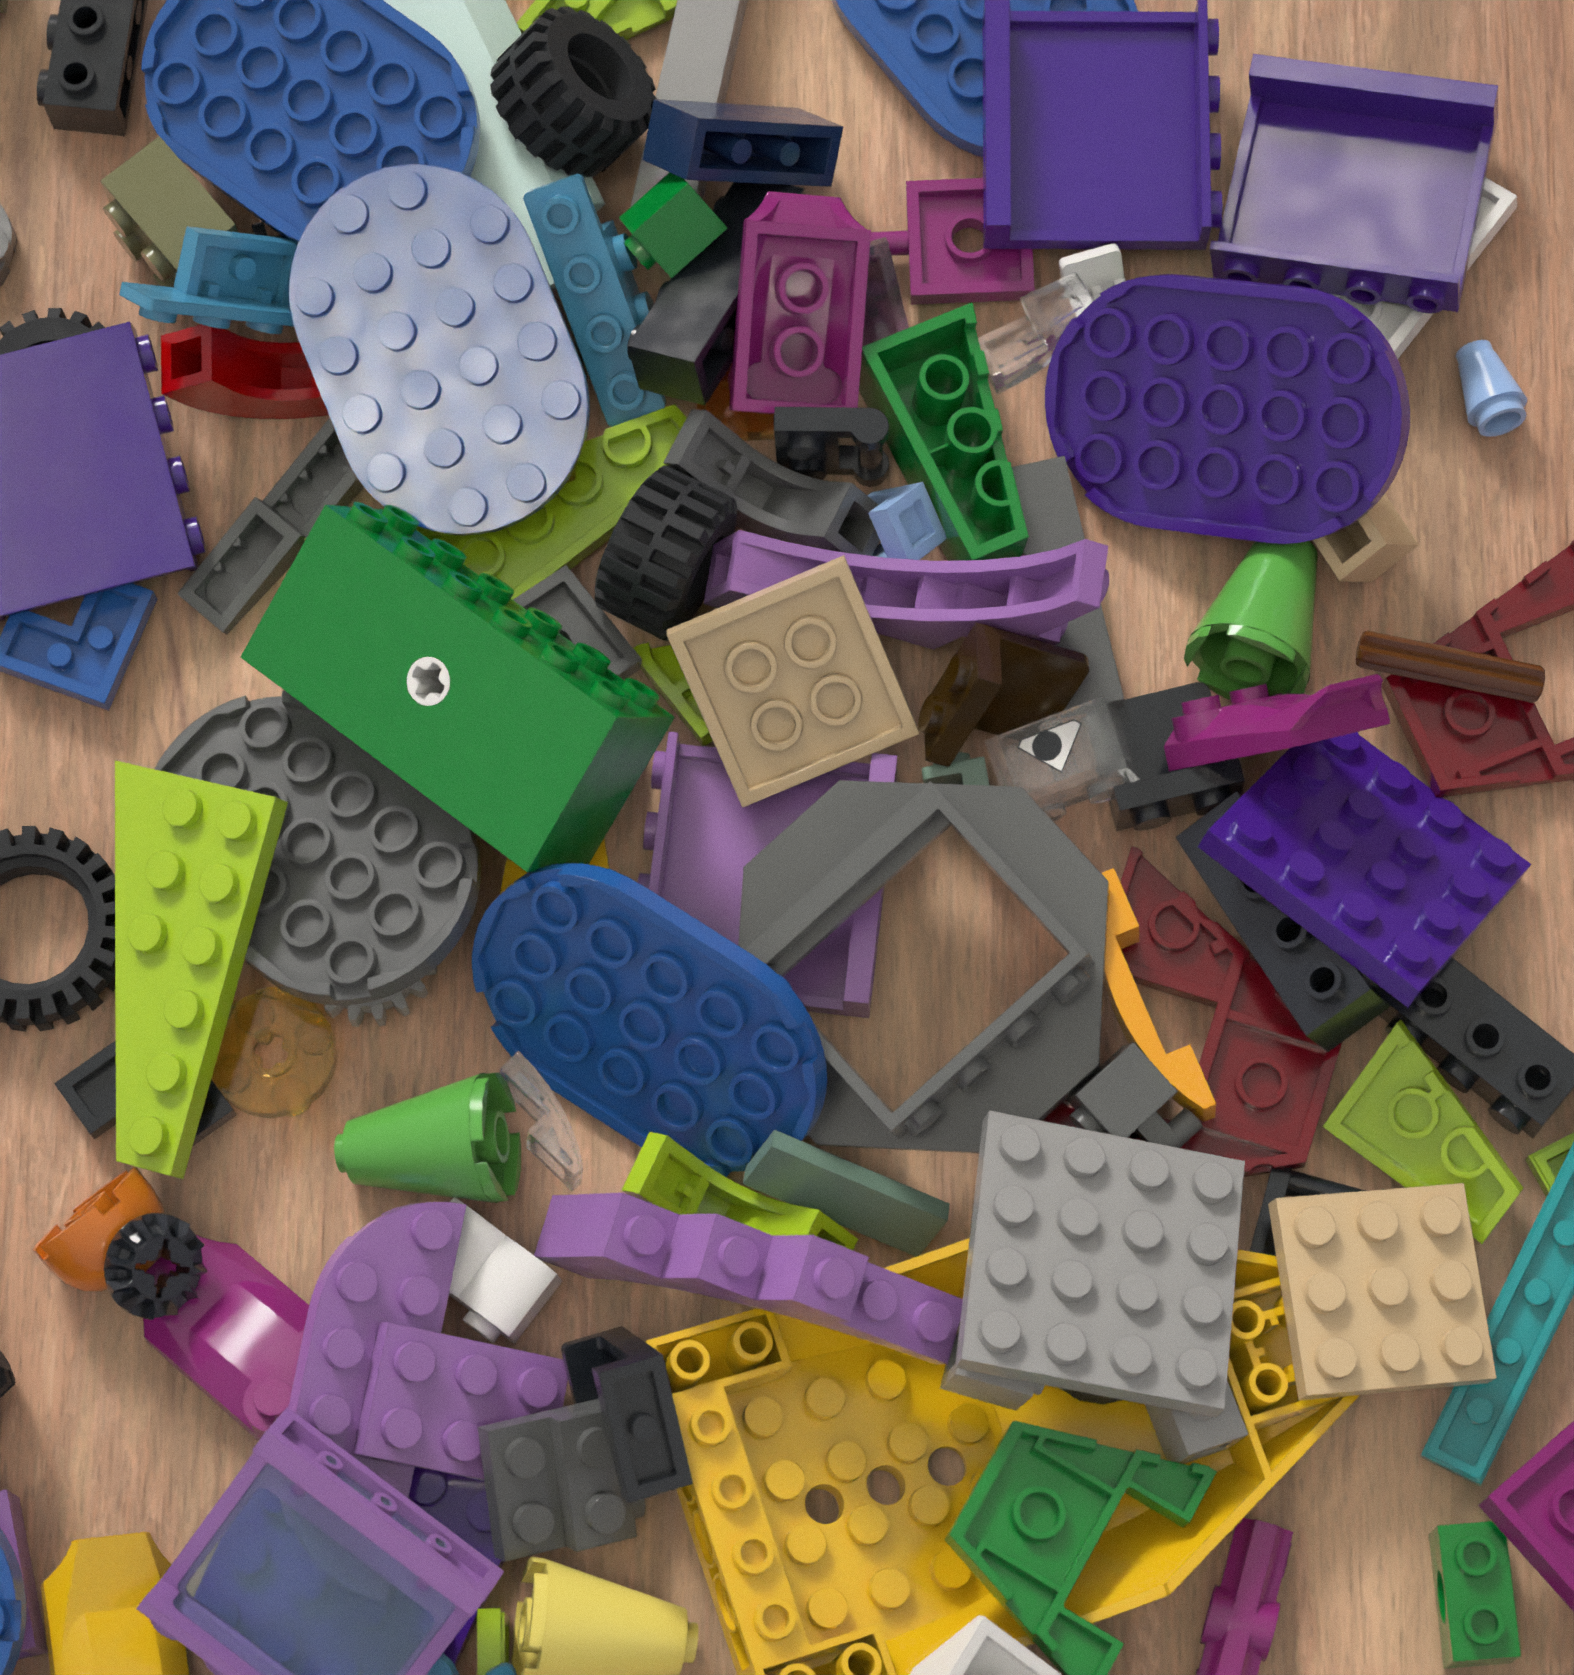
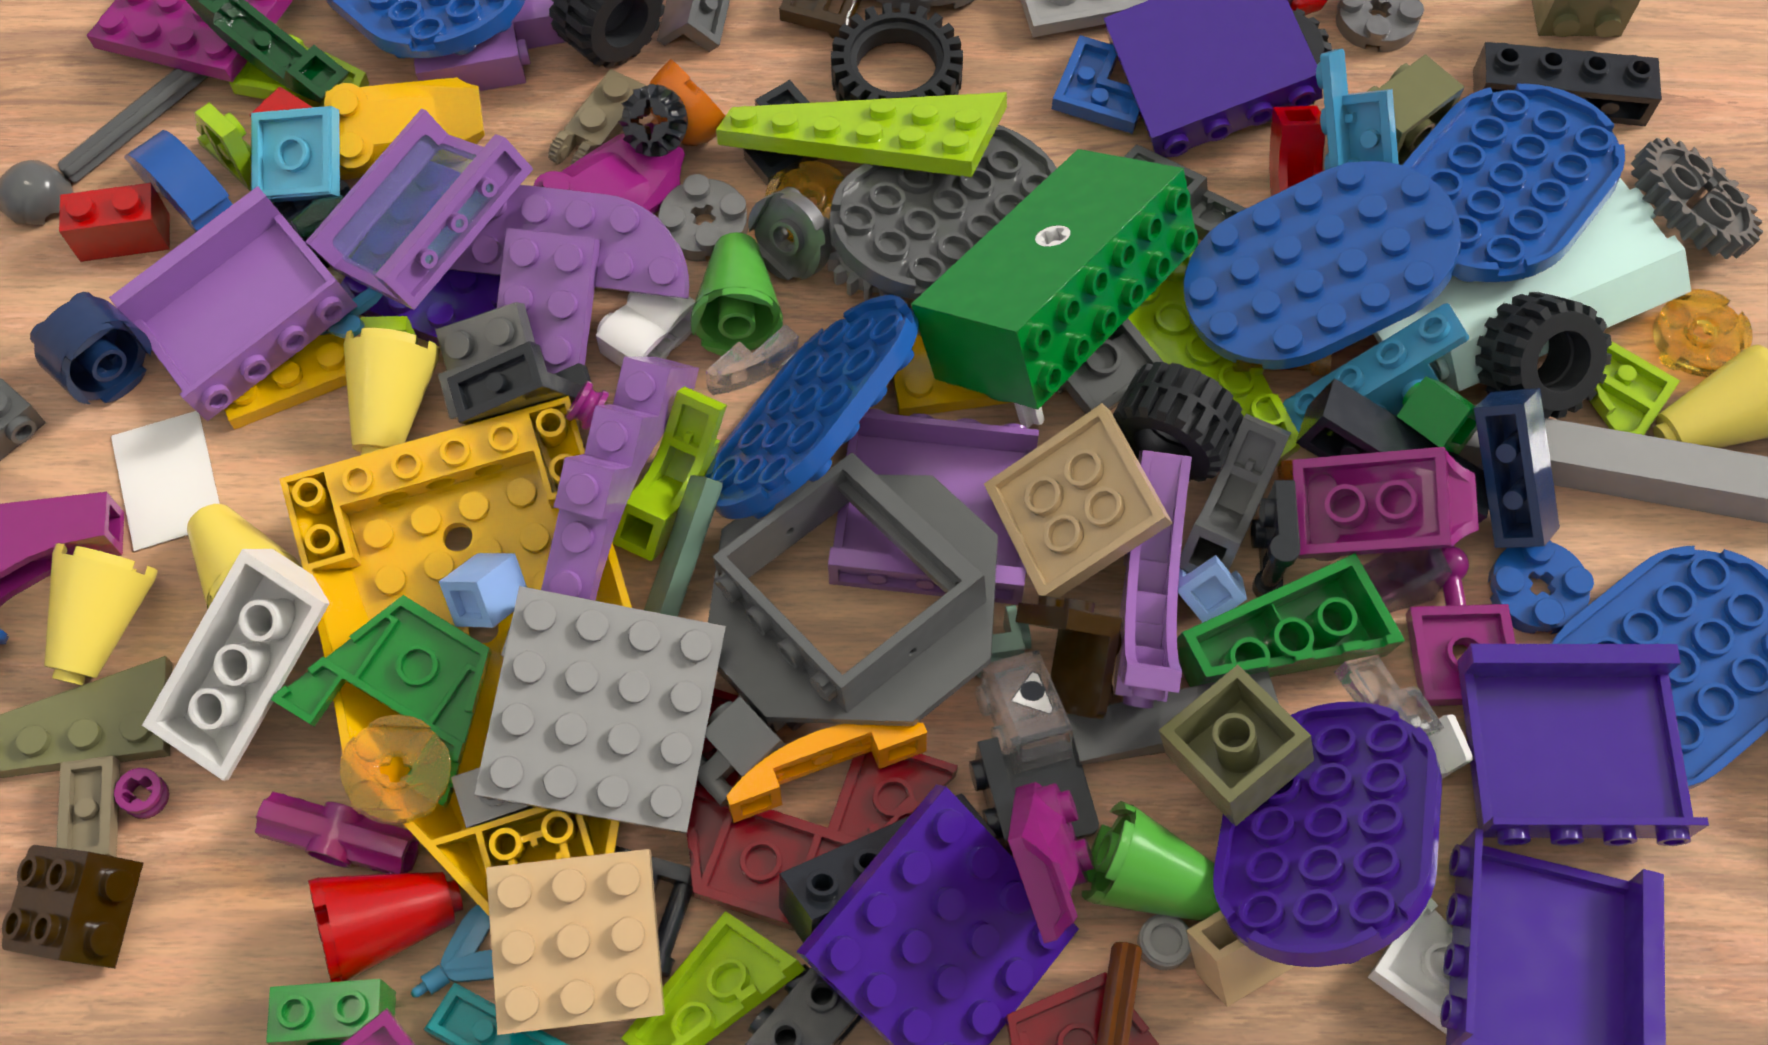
camera: 85 degrees right, 10 degrees down
(101, 1371) = (596, 119): none -> dark tan hinge
(280, 1170) = (697, 197): none -> flat silver plate
(350, 1038) = (806, 223): none -> flat silver plate
(669, 1308) = (584, 404): none -> magenta bush
(907, 139) = (1558, 568): none -> blue plate
(934, 1431) = (483, 589): none -> light blue panel
(1124, 497) = (1237, 744): none -> olive brick
(1215, 1491) = (415, 793): none -> clear yellow plate
(1339, 615) = (1164, 942): none -> light grey tile
(1353, 1552) = (379, 916): none -> red cone
(1390, 1454) = (461, 959): none -> dark azure piece

